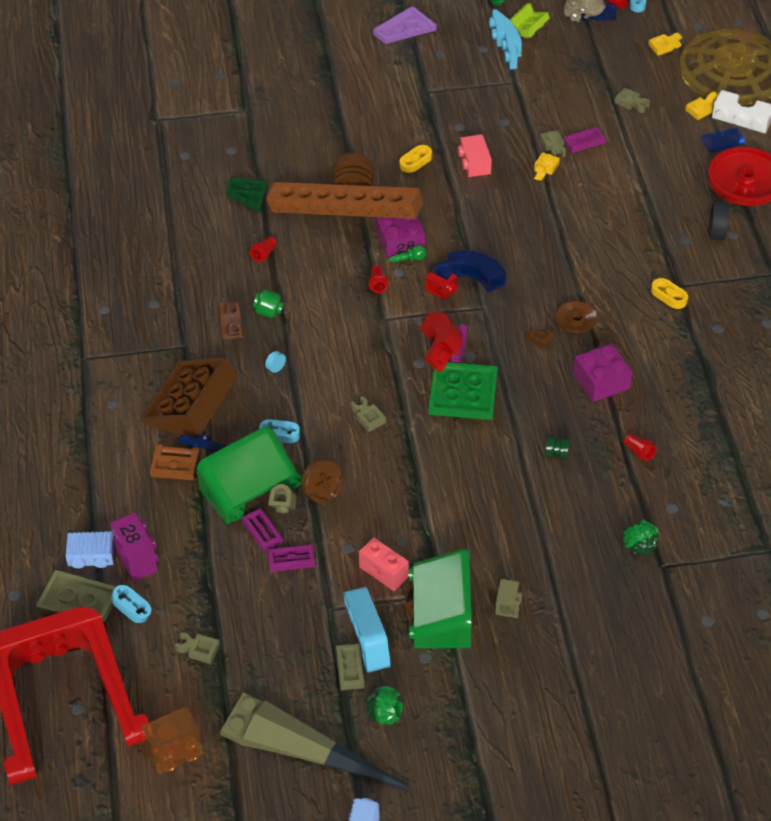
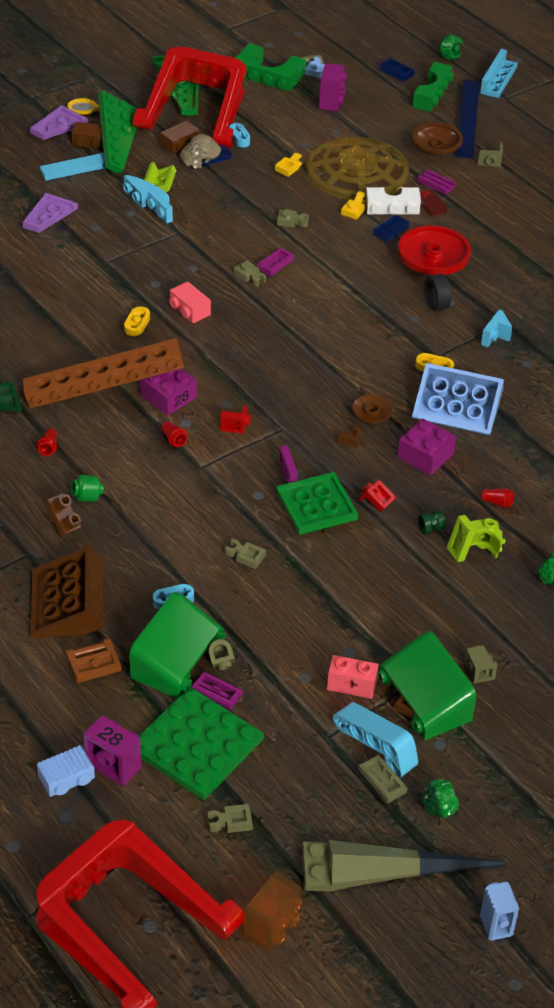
camera: 30 degrees left, 5 degrees down
(72, 591) = (75, 821): olive plate -> none
(130, 604) = (141, 805): medium azure beam -> none
(201, 442) = (110, 631): clear blue plate -> none
(215, 569) = (198, 742): none -> green plate
(275, 361) = (128, 537): medium azure tile -> none
(292, 560) = (263, 707): magenta tile -> none
(322, 480) = (248, 624): reddish brown tile -> none
(353, 170) = (92, 345): reddish brown wheel -> none
(417, 253) = (193, 401): green bar -> none
(445, 339) = (268, 454): red arch -> none
(473, 265) = (256, 394): clear blue arch -> none
(524, 403) = (378, 495): none -> red bracket
(545, 164) = (255, 291): yellow plate -> none
(585, 472) = (482, 533): none -> lime tile
(666, 336) = (458, 399): none -> light blue slope
(754, 276) = (497, 327): none -> medium azure slope

